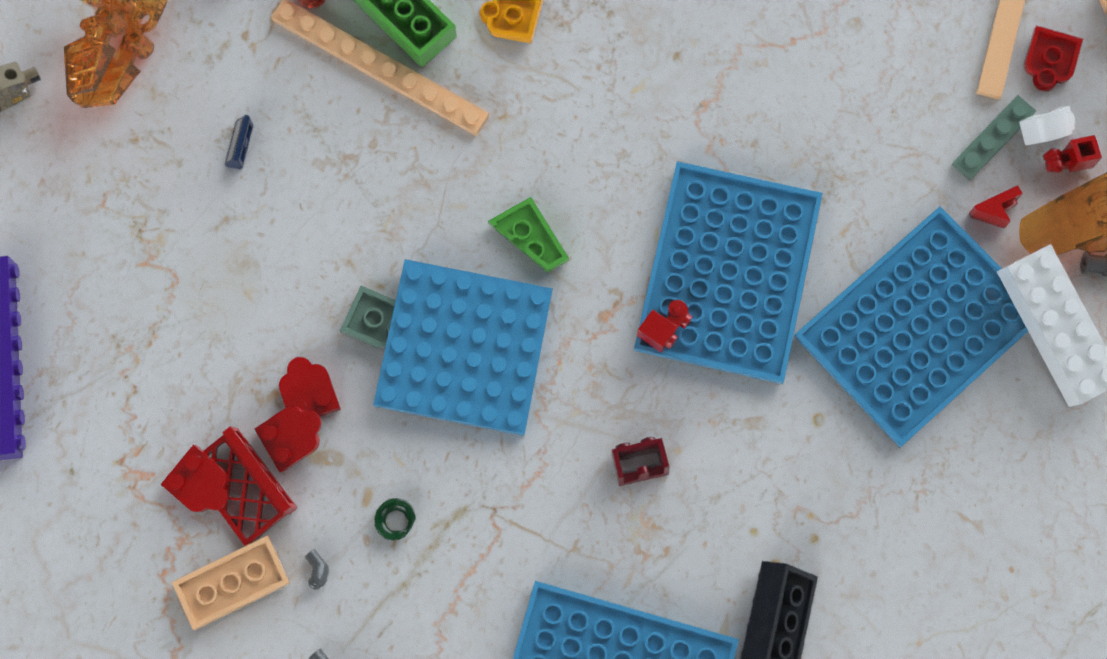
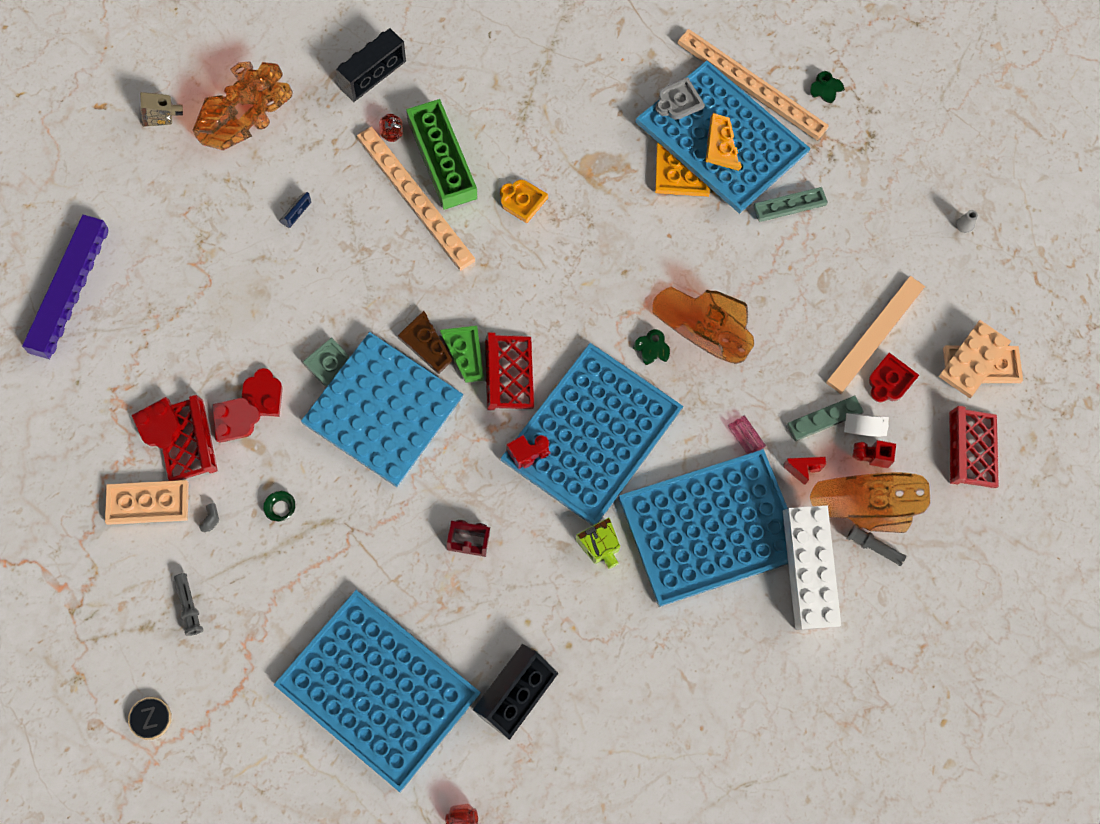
camera: 15 degrees right, 5 degrees down
(477, 244) = (425, 343): none -> reddish brown wing
(574, 240) = (492, 372): none -> red fence
(753, 138) = (652, 349): none -> dark green plate
(798, 401) = (600, 543): none -> lime torso
(804, 76) = (707, 321): none -> clear orange piece
(916, 190) = (754, 434): none -> clear pink tile

